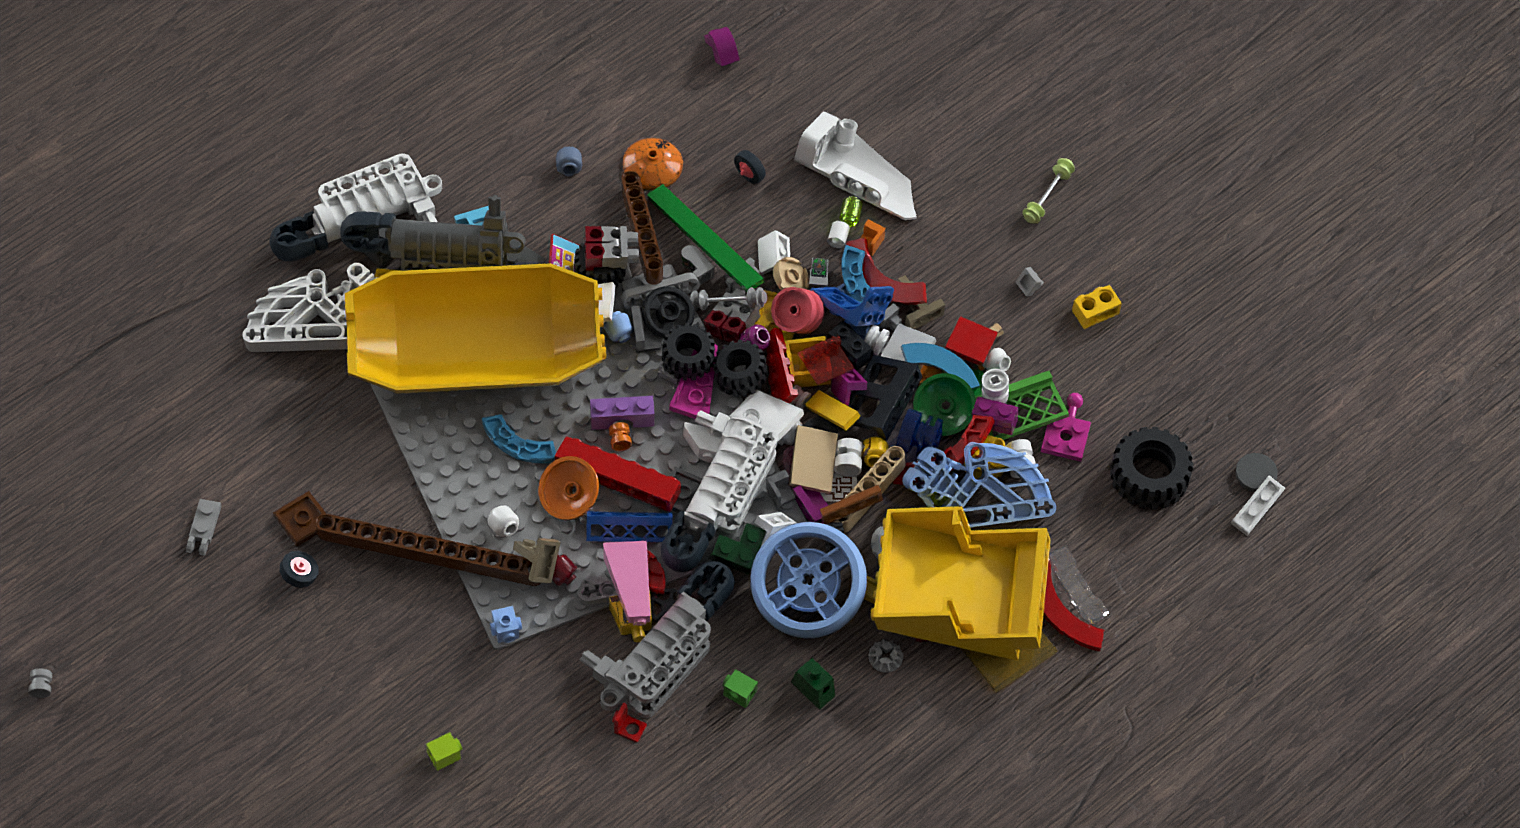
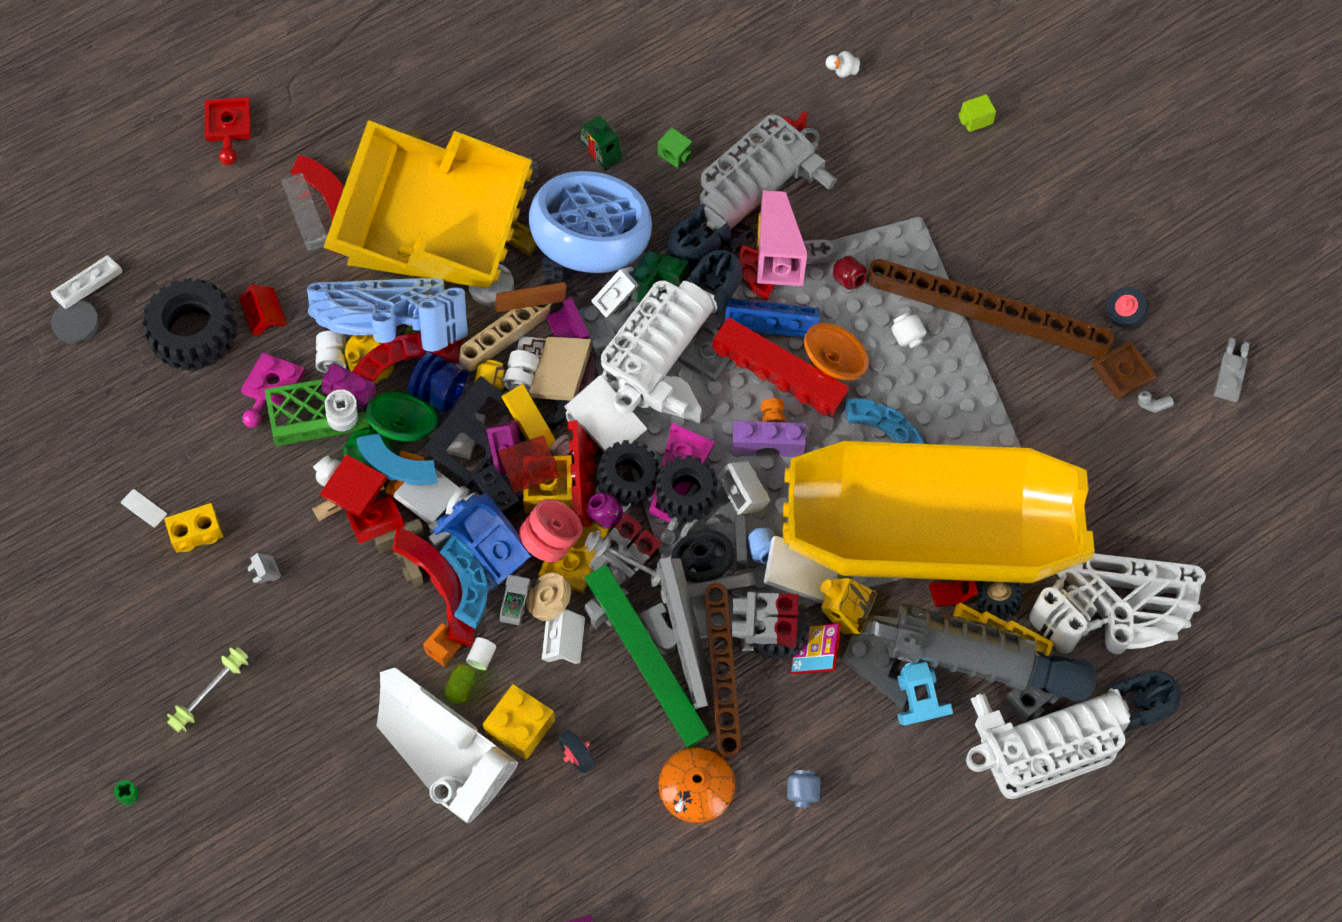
camera: 170 degrees left, 5 degrees up
(277, 488) = (1147, 402): none -> light grey arm
(505, 625) = (911, 219): light blue brick -> none
(542, 555) = (877, 277): dark tan bracket -> none
(579, 796) = (843, 64): none -> white animal
(639, 367) = (743, 488): none -> white brick
(676, 245) = (686, 631): none -> light grey arch
(798, 186) = (519, 722): none -> yellow brick
(943, 319) = (378, 520): none -> red tile
(1089, 123) = (124, 799): none -> green axle
(1092, 497) = (261, 308): none -> red panel
(1145, 326) = (143, 508): none -> white sticker
(1183, 664) = (236, 129): none -> red plate

